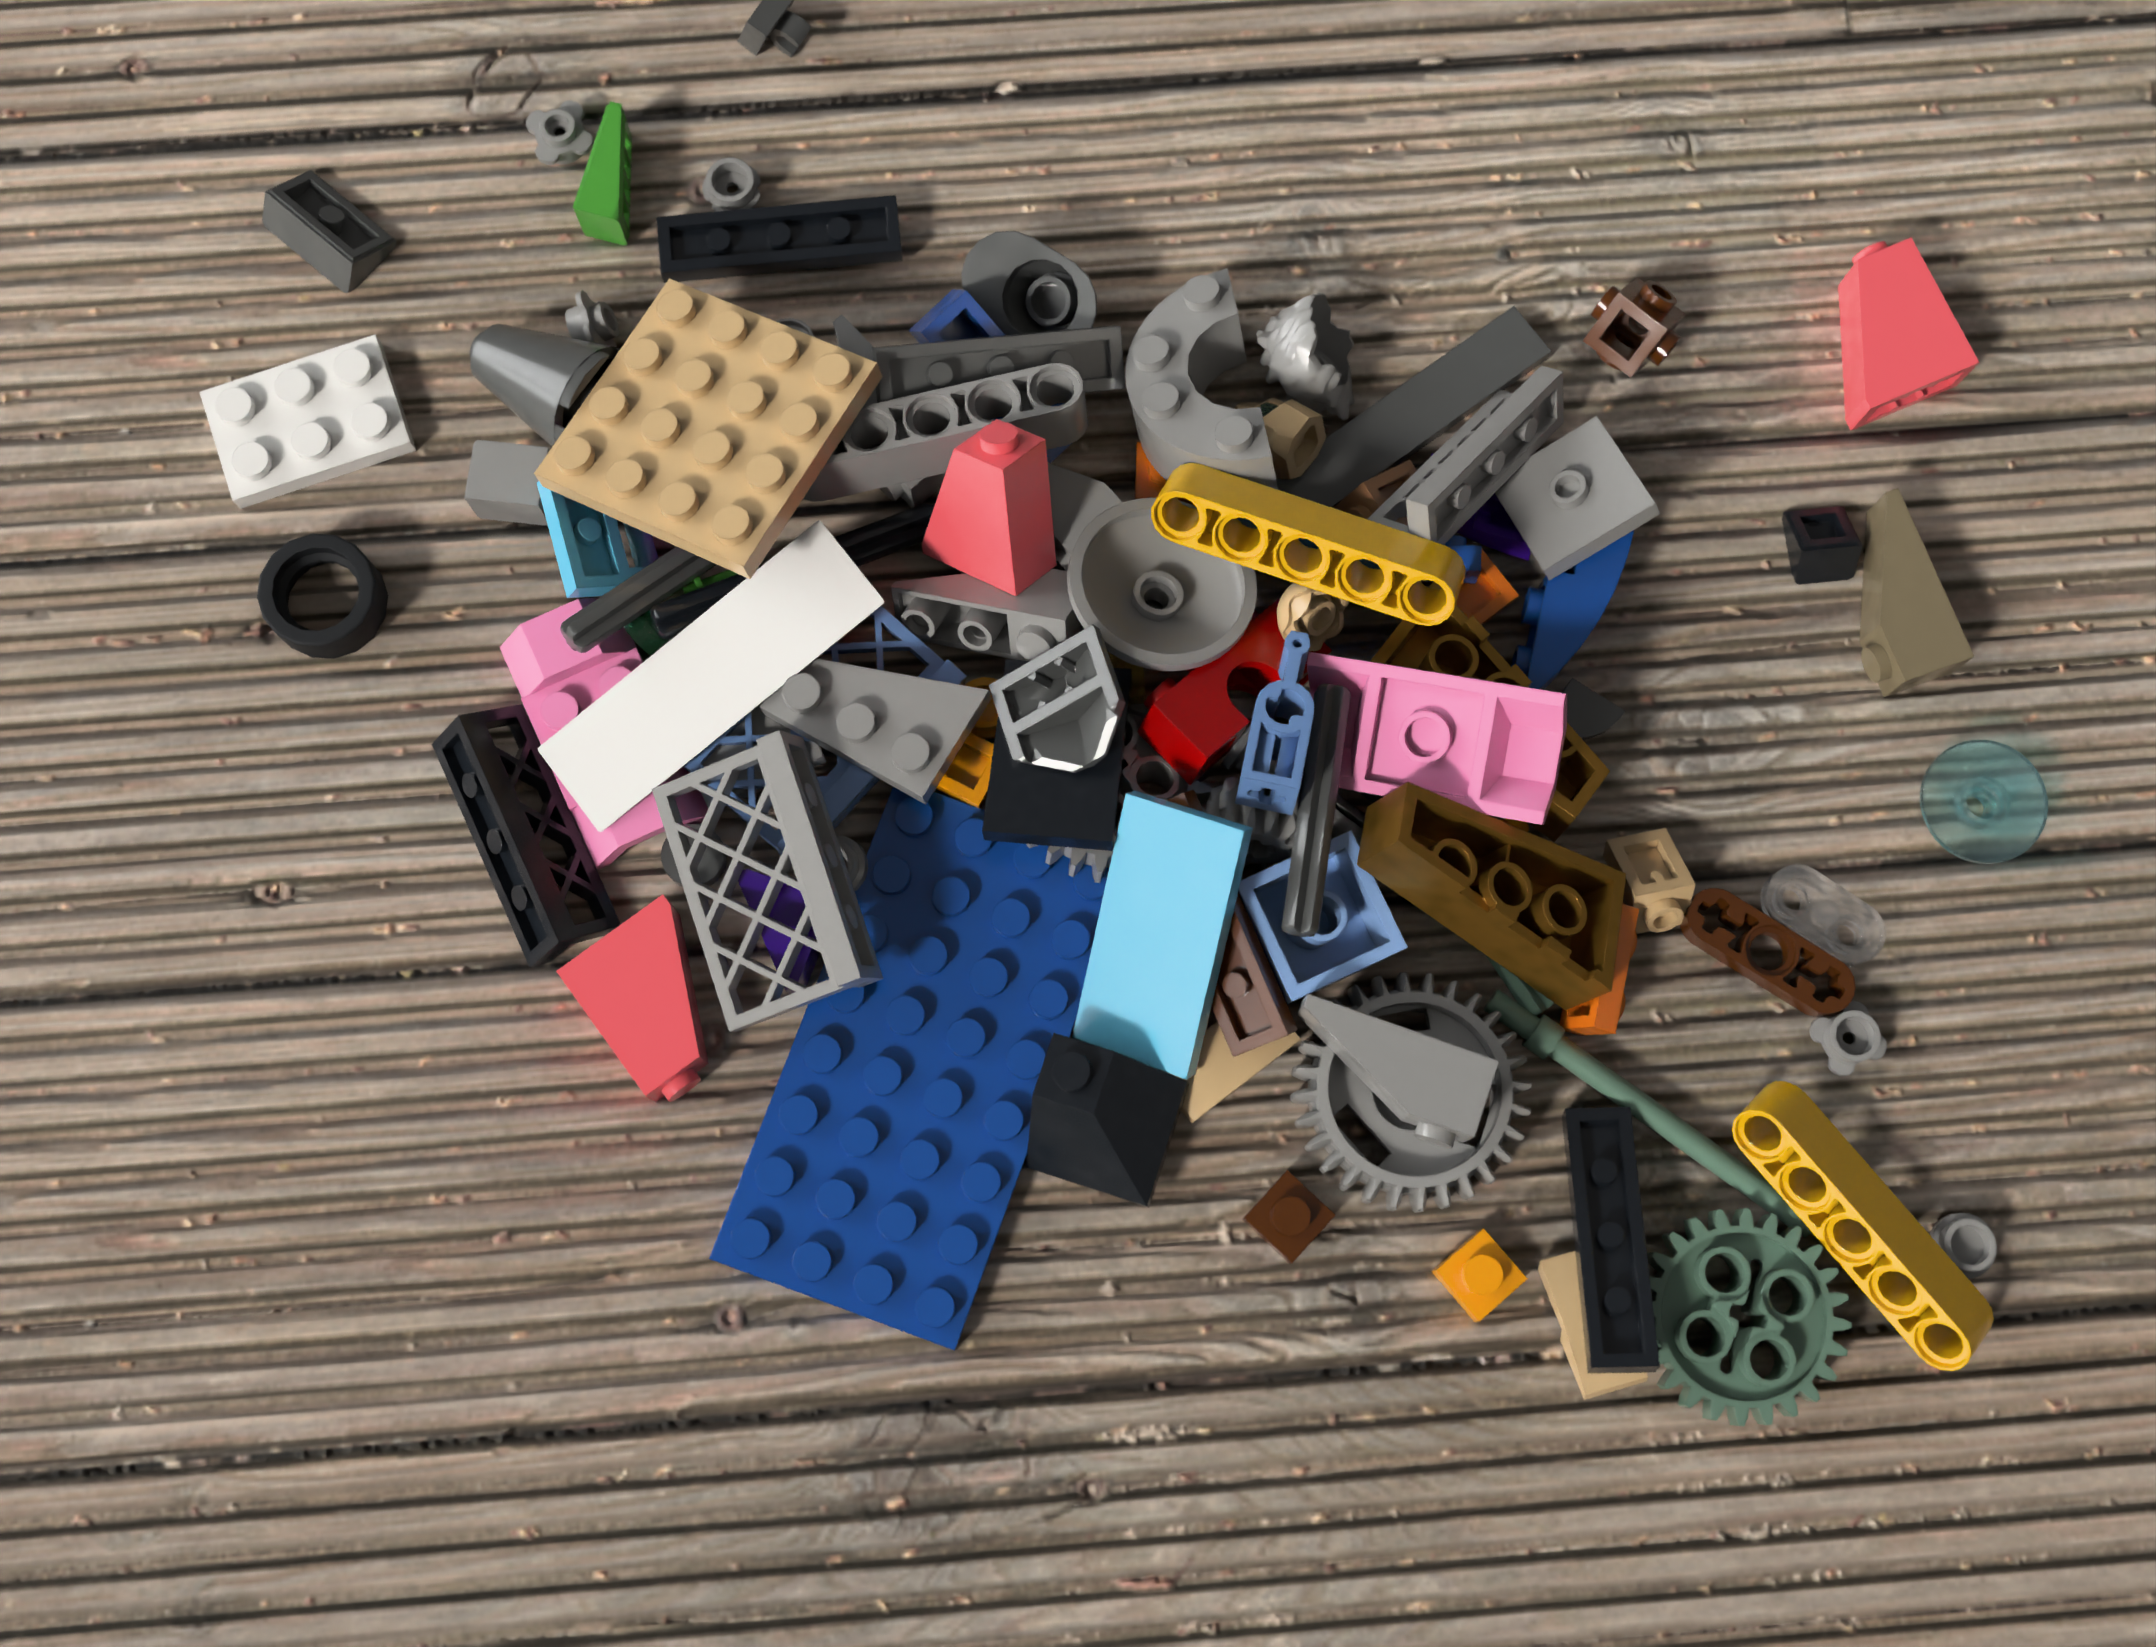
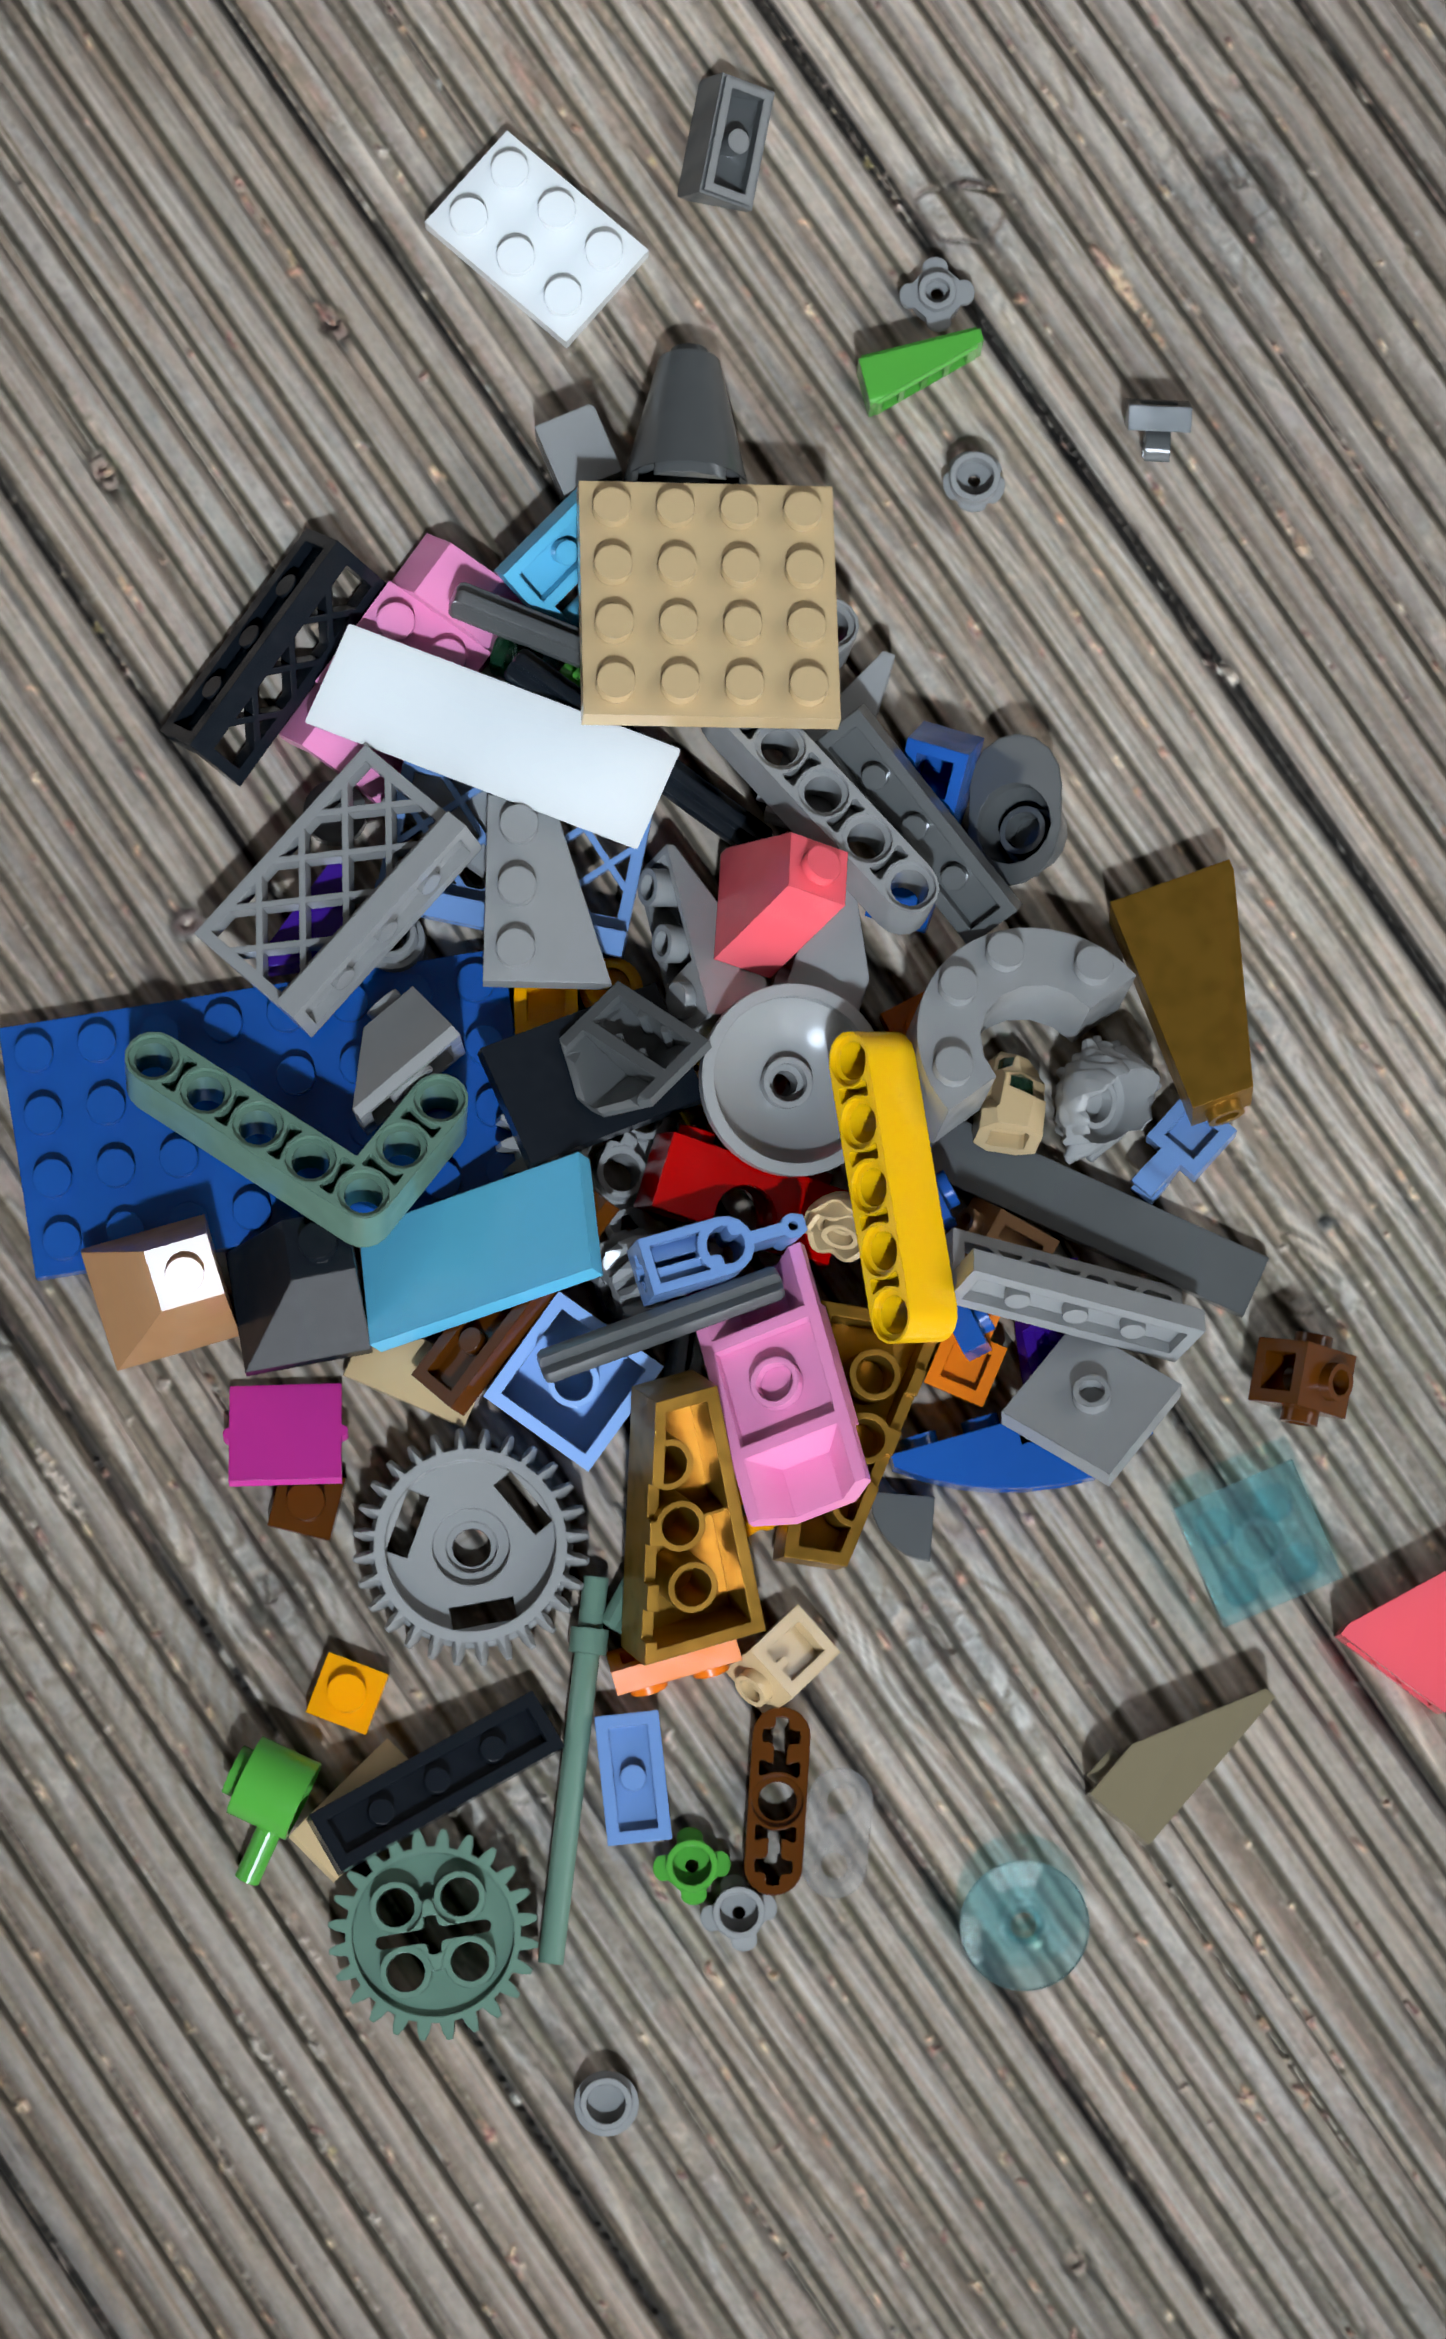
camera: 60 degrees right, 5 degrees up
(294, 561) = (364, 310): black tyre -> none
(592, 321) = (766, 437): light grey plate -> none
(644, 1000) = (184, 846): coral slope -> none
(779, 239) = (947, 553): black plate -> none
(942, 904) = (398, 1050): none -> light grey slope
(971, 1041) = (296, 1144): none -> sand green beam
(1030, 1241) = (160, 1292): none -> medium nougat slope
(1220, 1202) = (285, 1434): none -> dark pink piece
(1263, 234) = (1191, 985): none -> pearl gold slope
(1382, 318) = (1179, 1149): none -> medium blue plate
(1413, 1074) = (474, 1537): light grey slope -> none
(1539, 1393) = (269, 1792): none -> bright green piece
(1686, 1063) = (633, 1778): none -> medium blue plate
(1749, 442) = (1257, 1543): none -> clear light blue plate
(1795, 1039) = (691, 1847): none -> bright green plate
(1821, 545) = (1199, 1661): black slope -> none
(1863, 1225) = (571, 1999): yellow beam -> none

